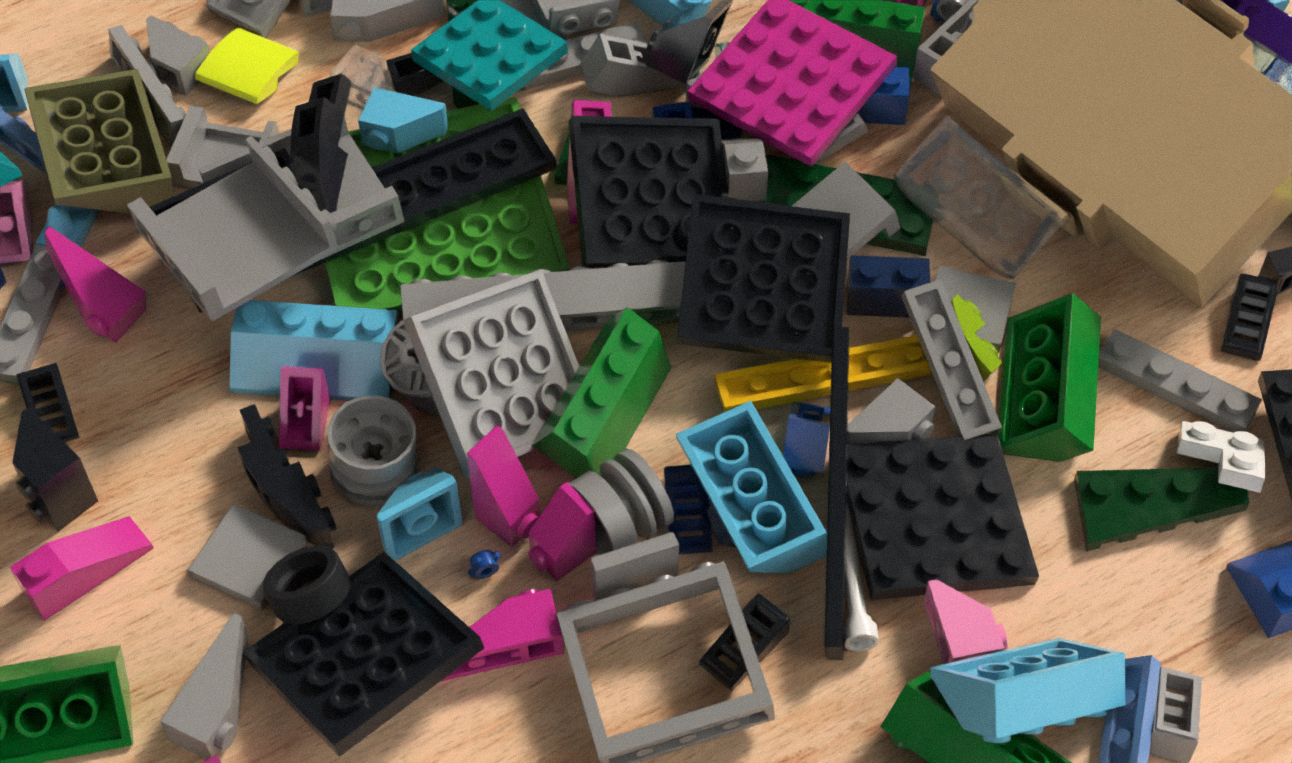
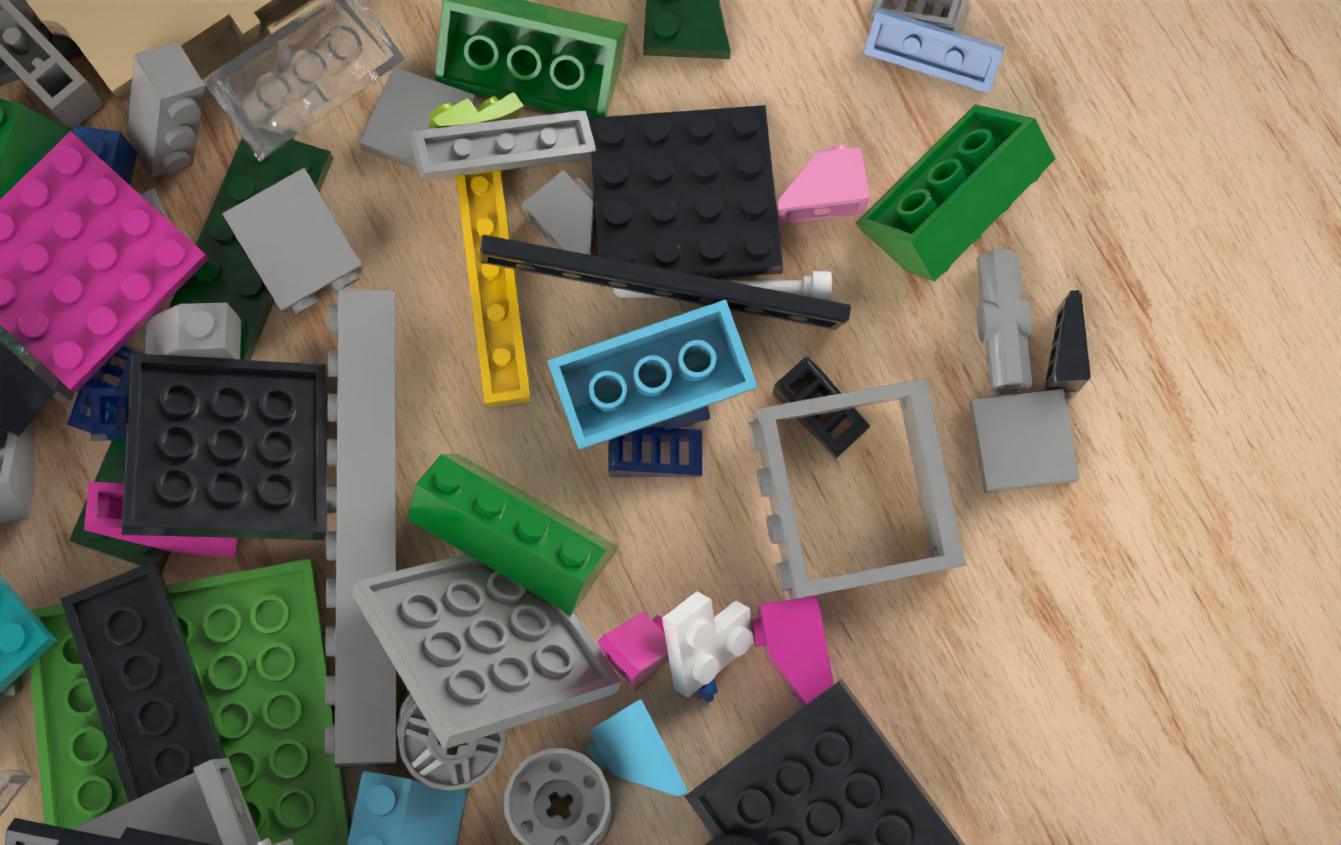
camera: 85 degrees left, 20 degrees up
(400, 121) = (53, 763): medium azure slope -> none
(504, 544) = (703, 643): none -> white plate
(563, 534) = (685, 575): dark pink slope -> none
(625, 501) = (655, 514): light grey wheel -> none
(634, 565) = (746, 510): light grey tile -> none
(763, 278) = (375, 328): black plate -> none
(807, 438) = (575, 310): blue slope -> none
(879, 282) = (385, 199): dark blue brick -> none
(923, 113) = (165, 109): none -> light grey brick
(1032, 687) = (912, 128): medium azure slope -> none

